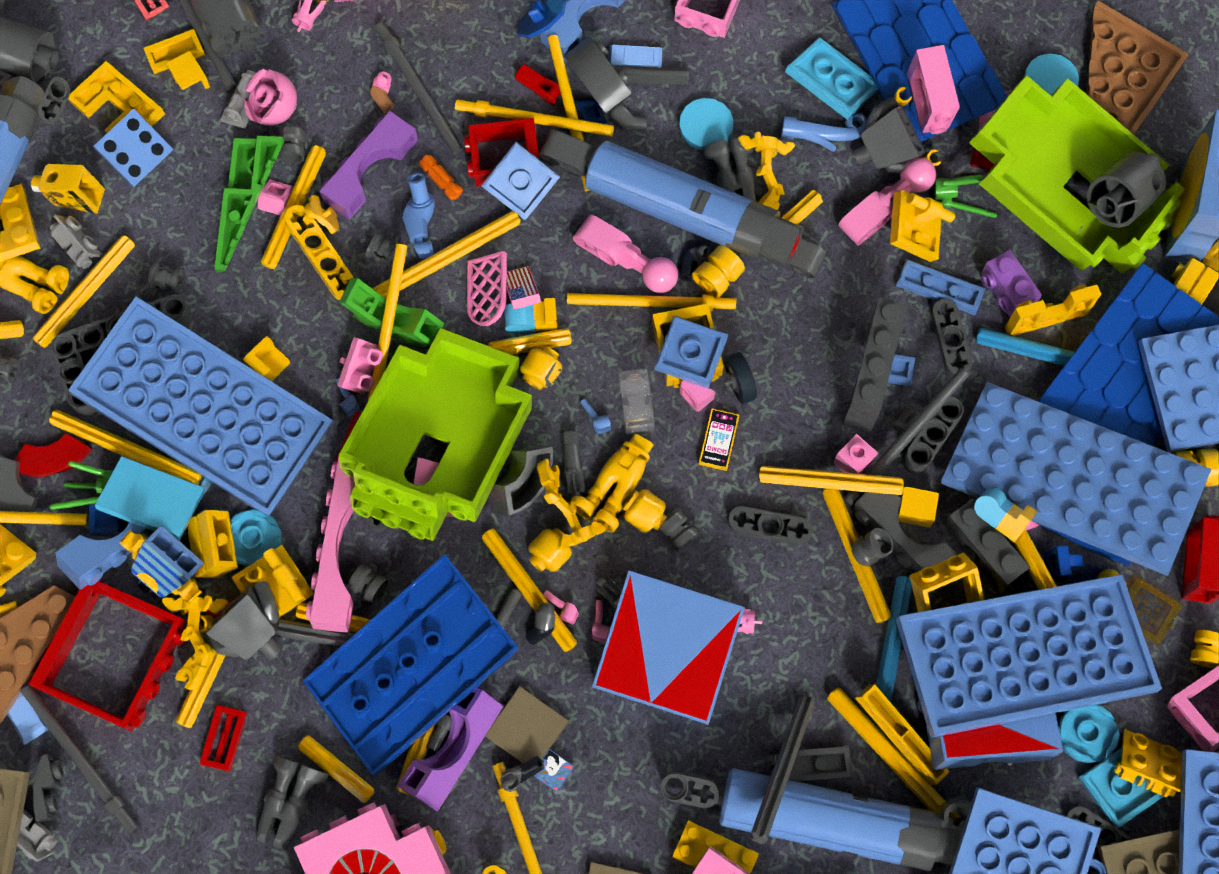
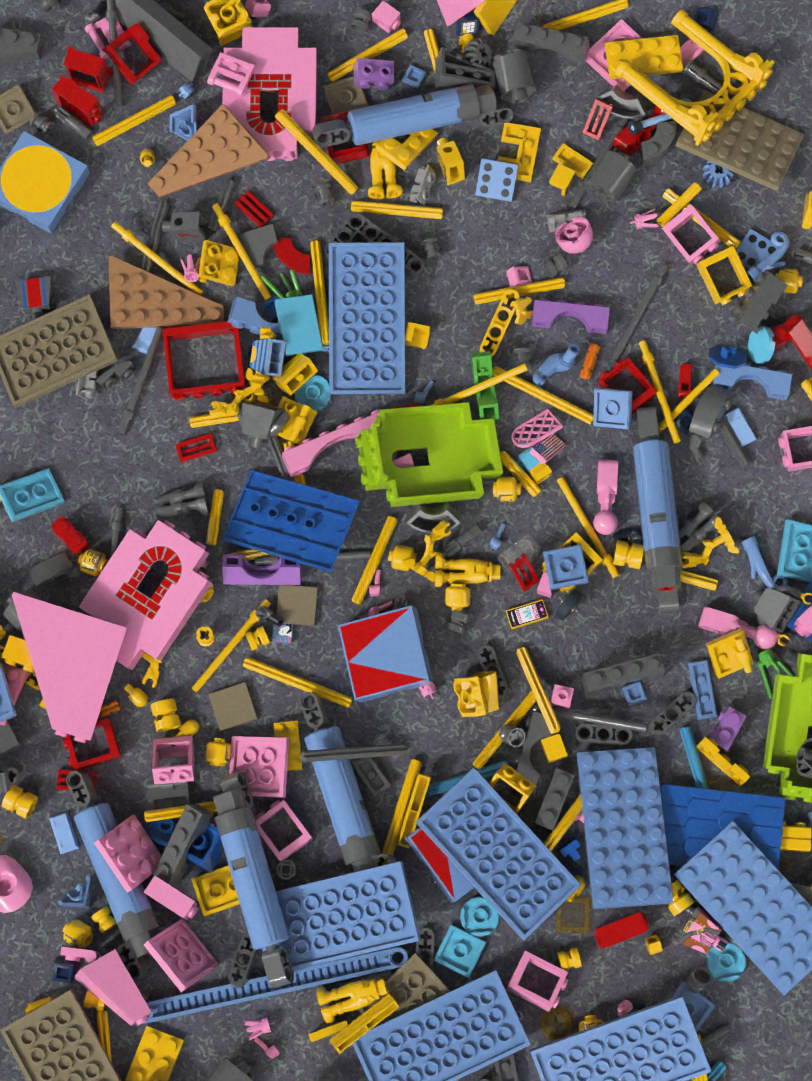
camera: 60 degrees right, 5 degrees up
(249, 170) = (522, 253): bright green wedge -> none
(359, 366) = (444, 388): bright pink hips -> none
(367, 583) = (324, 470): dark grey wheel -> none
(380, 89) = (622, 293): arm -> none
(540, 808) = (252, 638): none -> yellow wheel
(543, 623) = (359, 579): dark grey arm -> none
(632, 790) = (297, 682): none -> yellow axle
(665, 413) = (518, 564): none -> red tile
(705, 123) = (722, 493): medium azure tile -> none
(791, 559) = (477, 693): none -> yellow piece
(1003, 514) = (574, 797): leg -> none
(1150, 760) = (481, 957): yellow hinge -> none

